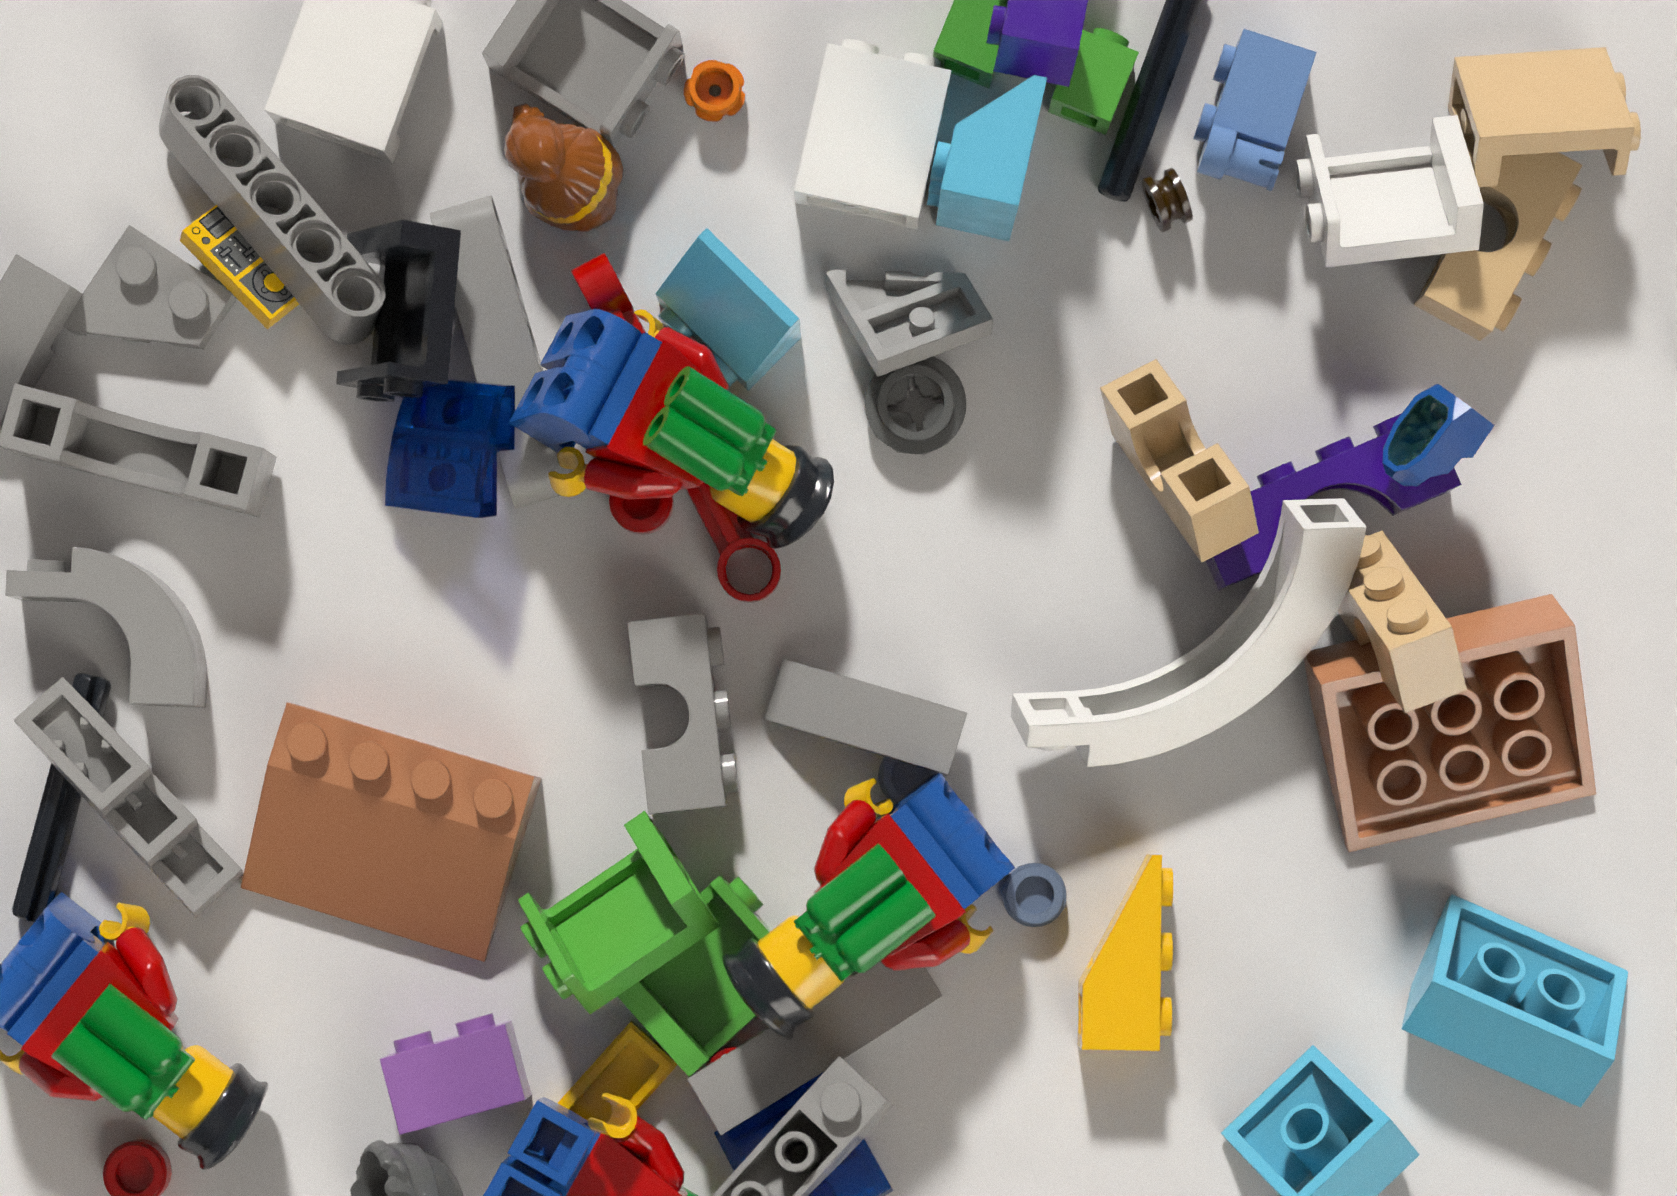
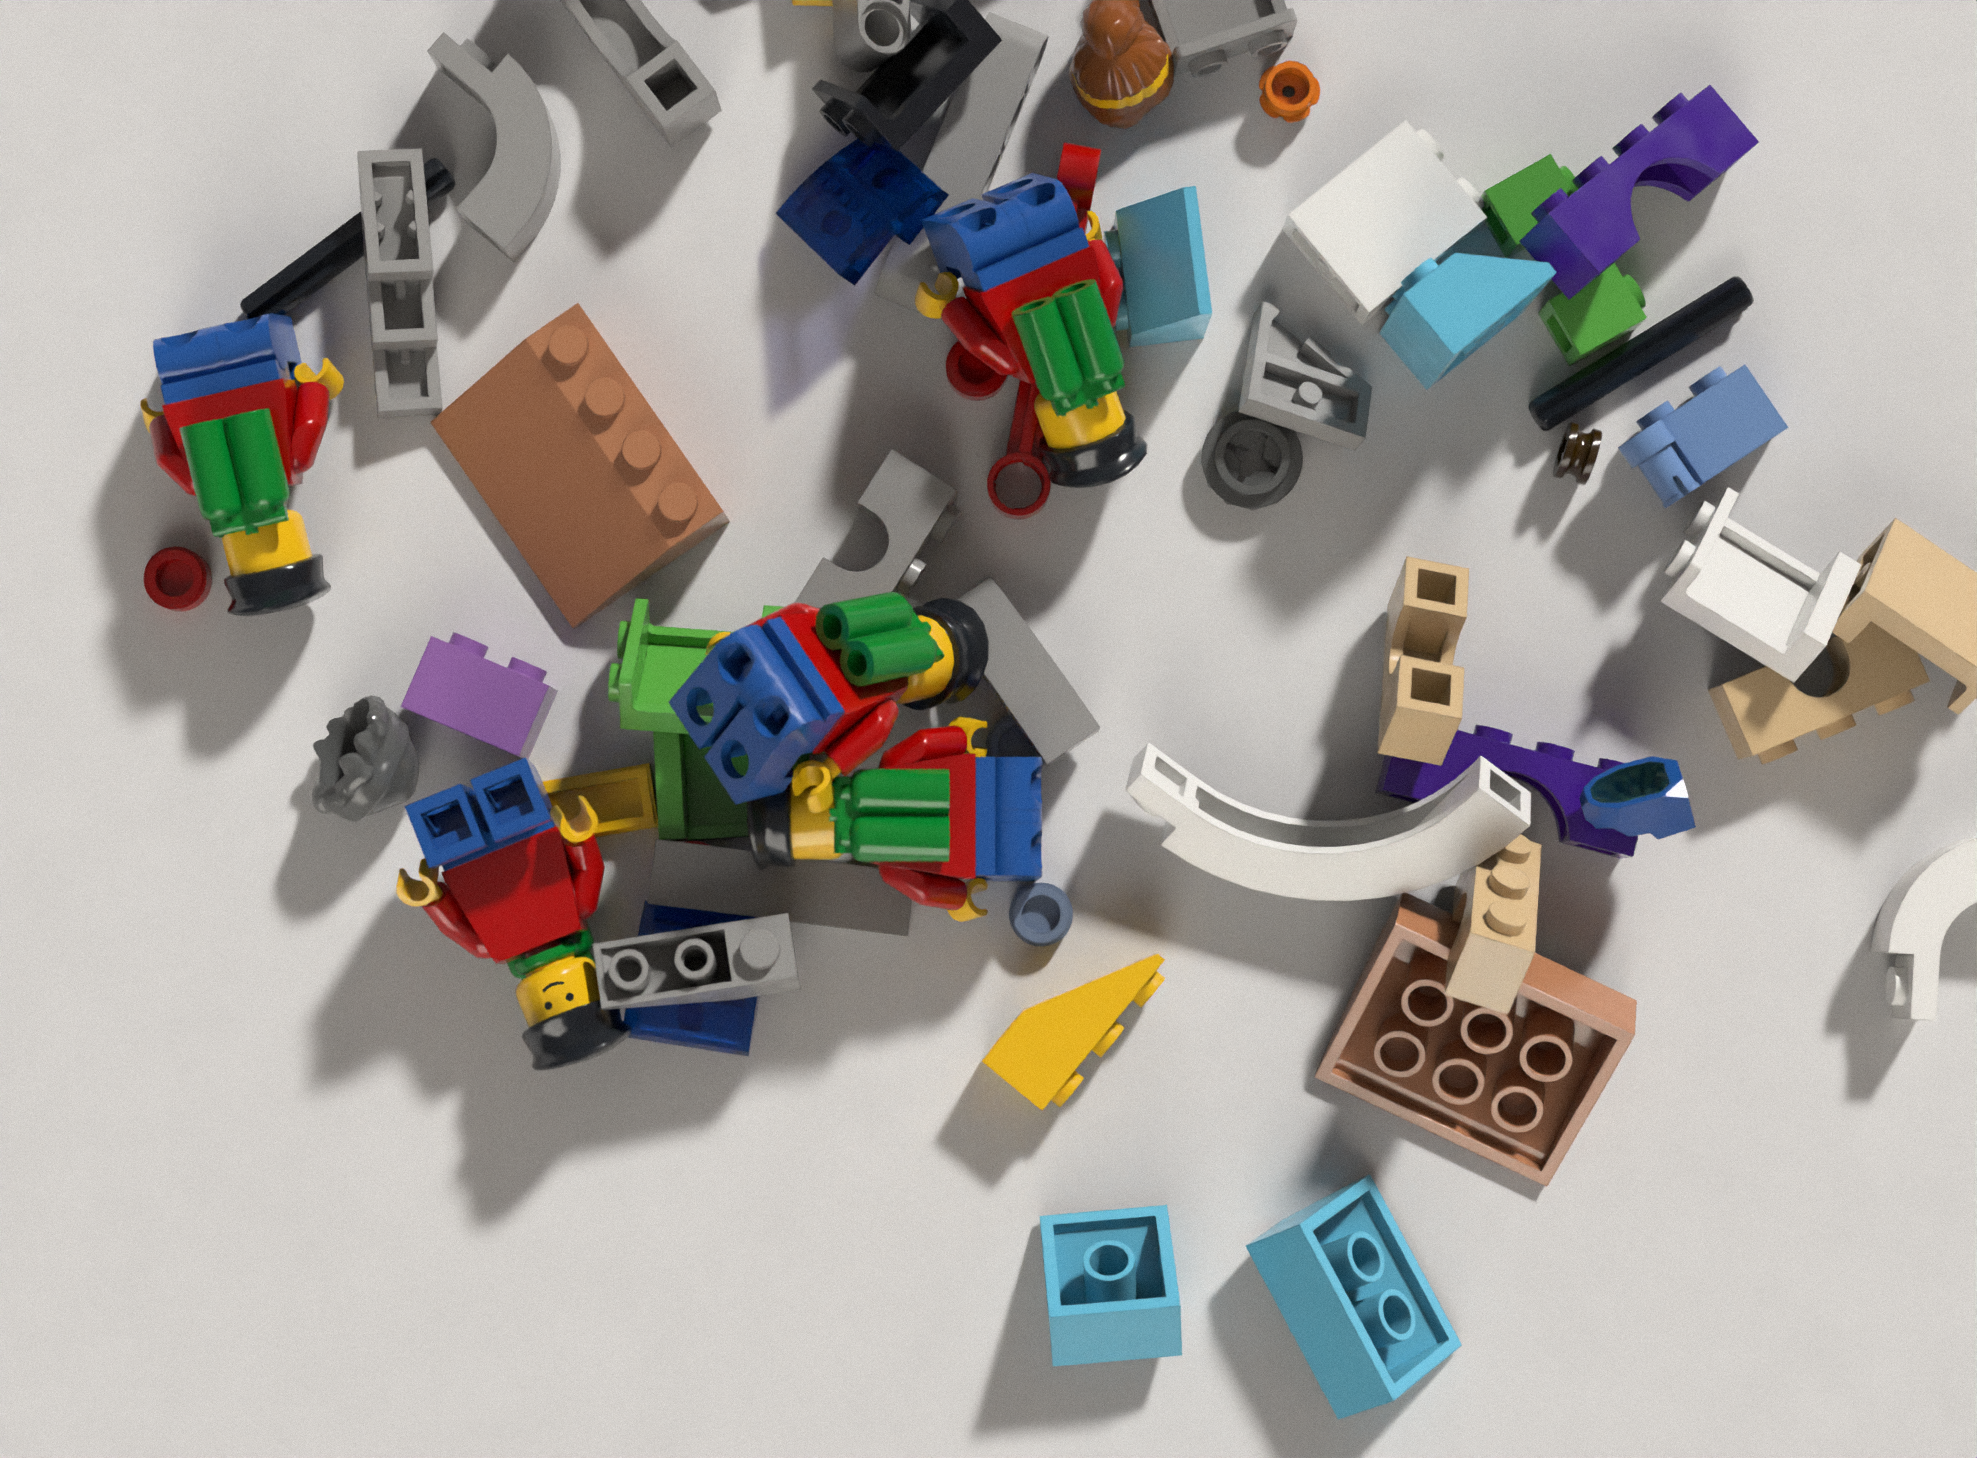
camera: 35 degrees right, 0 degrees up
(729, 855) = (826, 686): none -> piece

